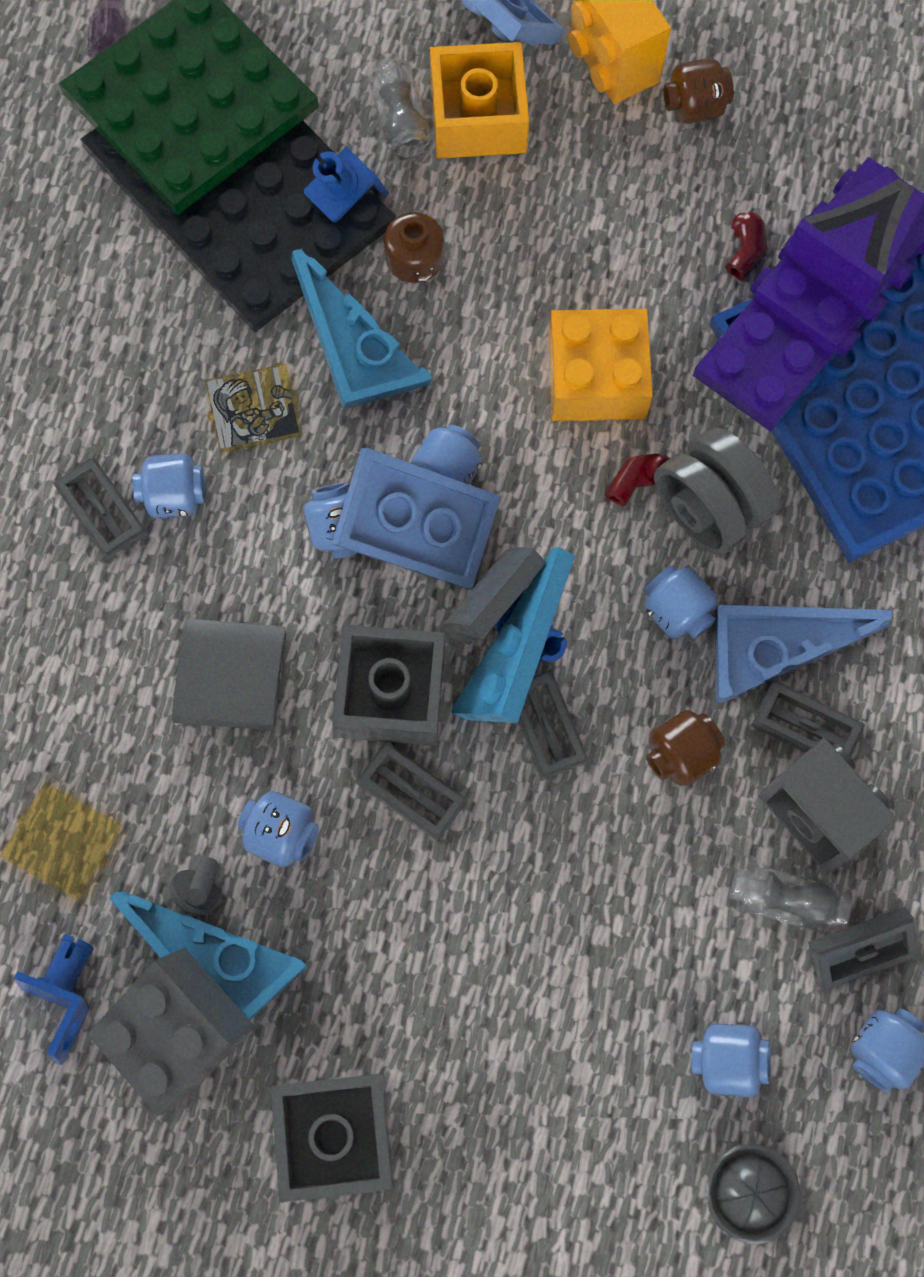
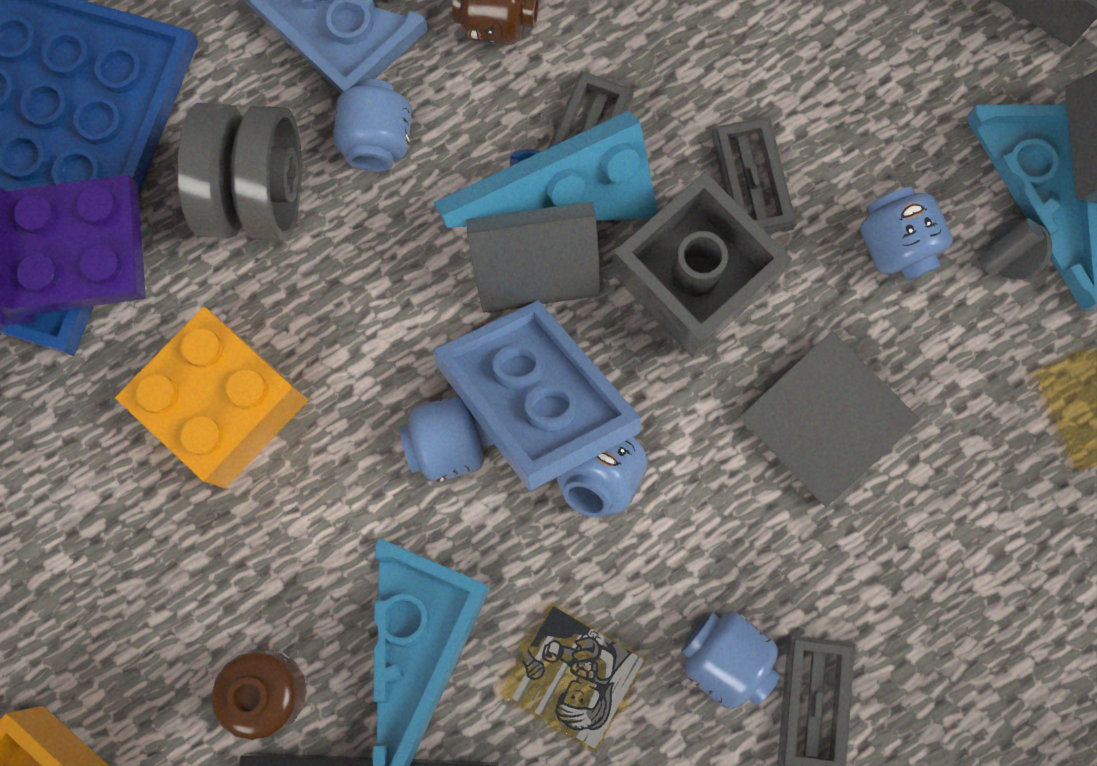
camera: 130 degrees left, 5 degrees up
(634, 473) = (283, 274): dark red arm -> none

